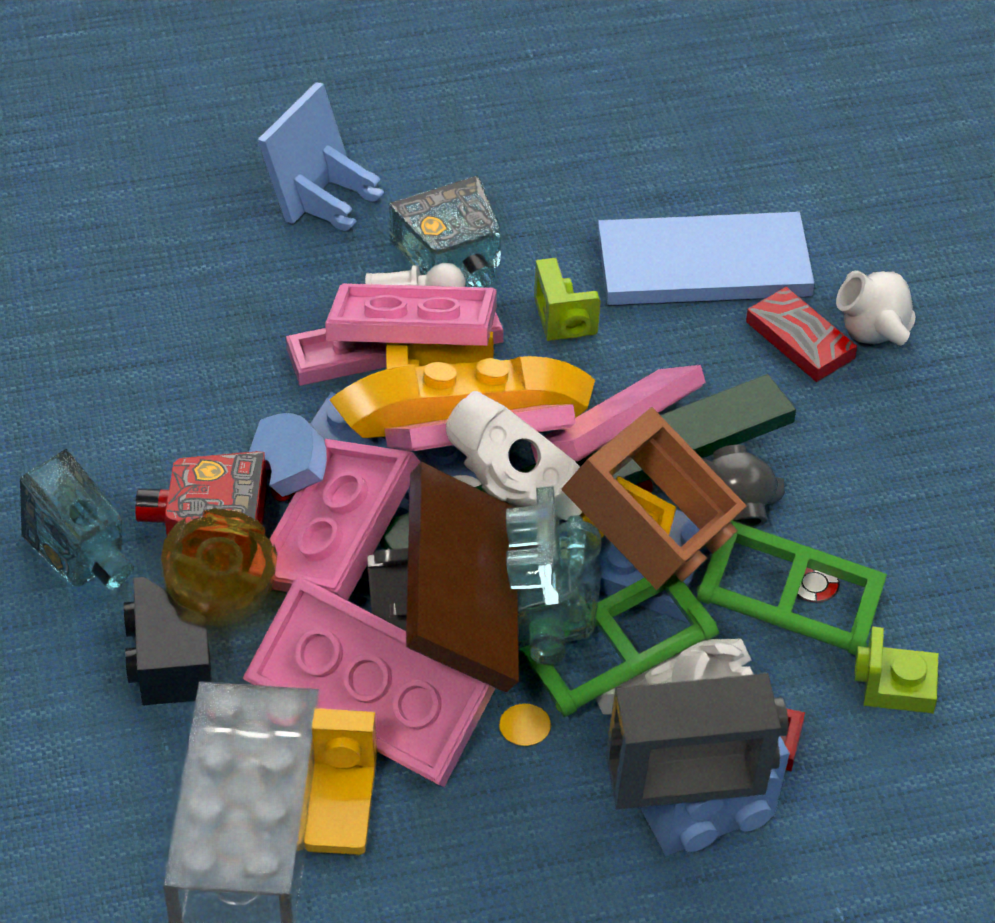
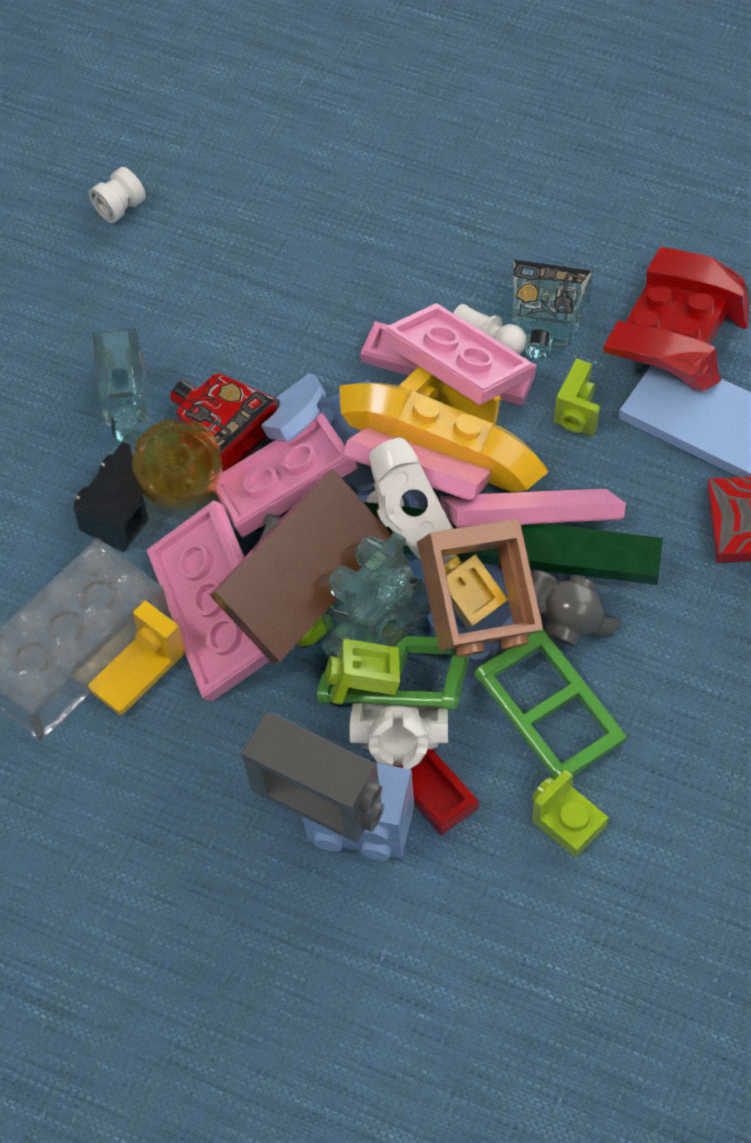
camera: 40 degrees right, 10 degrees up
(306, 154) = (490, 191): light blue plate -> none
(525, 724) = (297, 691): yellow sticker -> none
(590, 177) = (681, 315): none -> red piece
(597, 643) = (363, 668): none -> lime bracket
(818, 586) = (575, 715): sticker -> none

